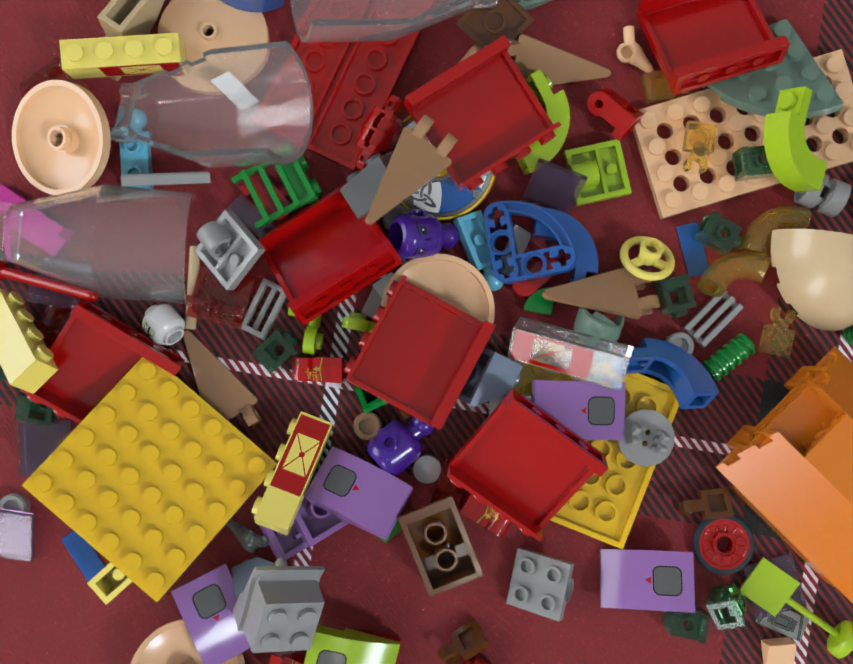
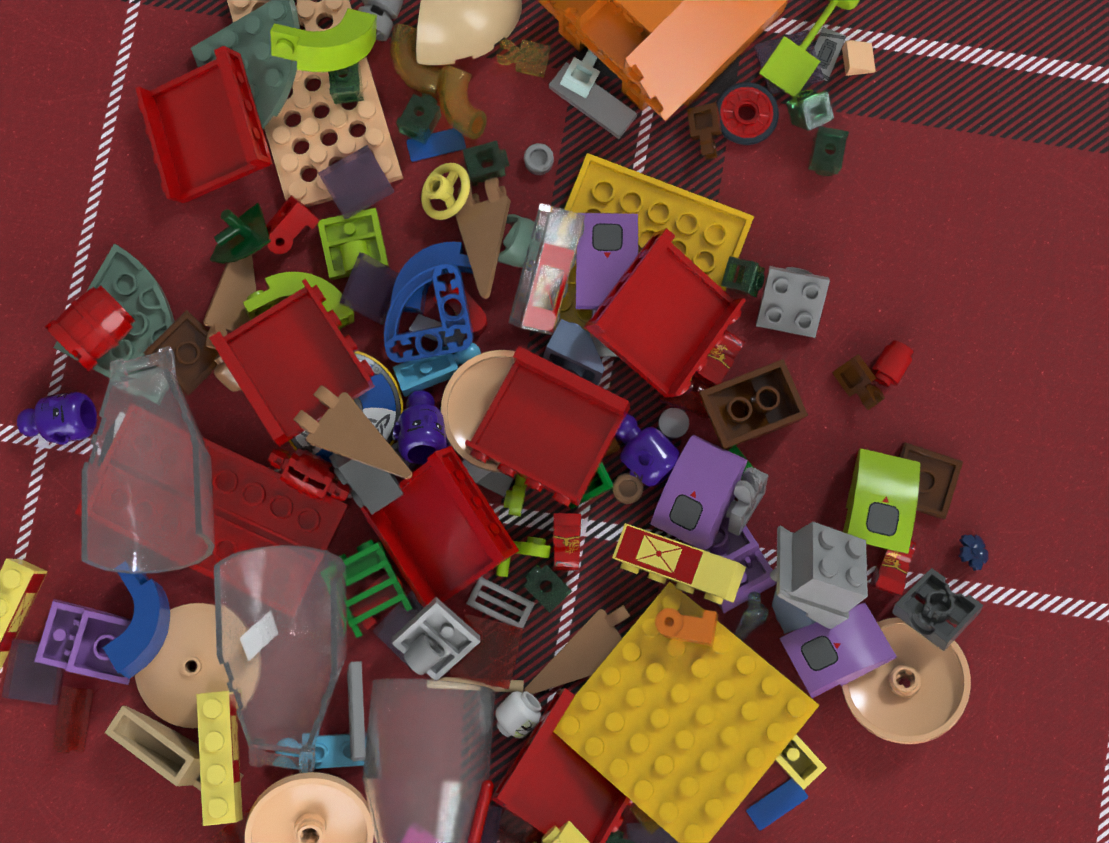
camera: 90 degrees left, 5 degrees down
(229, 479) = (687, 628): none -> orange leg
(355, 537) = (749, 494): none -> light grey hinge
(538, 304) = (493, 305): green tile -> none
(563, 543) = (749, 279): none -> clear green brick
(604, 68) = (242, 236): none -> dark green shield
(632, 52) = (228, 201): light nougat animal -> none
(647, 580) = (785, 191): medium lavender slope -> none
(655, 174) = (356, 182): none -> clear purple piece
(656, 87) = (261, 183): clear yellow plate -> none
(658, 441) = (640, 179): light grey plate -> none
(678, 369) = (563, 159): blue arch -> none
(699, 141) = (322, 137): clear yellow plate -> none
(728, 301) = (527, 141): light grey tile -> none
(729, 356) = (548, 105): green piece -> none
(735, 397) = (598, 105): none -> light grey tile
(761, 387) = (581, 75): none -> light aqua plate

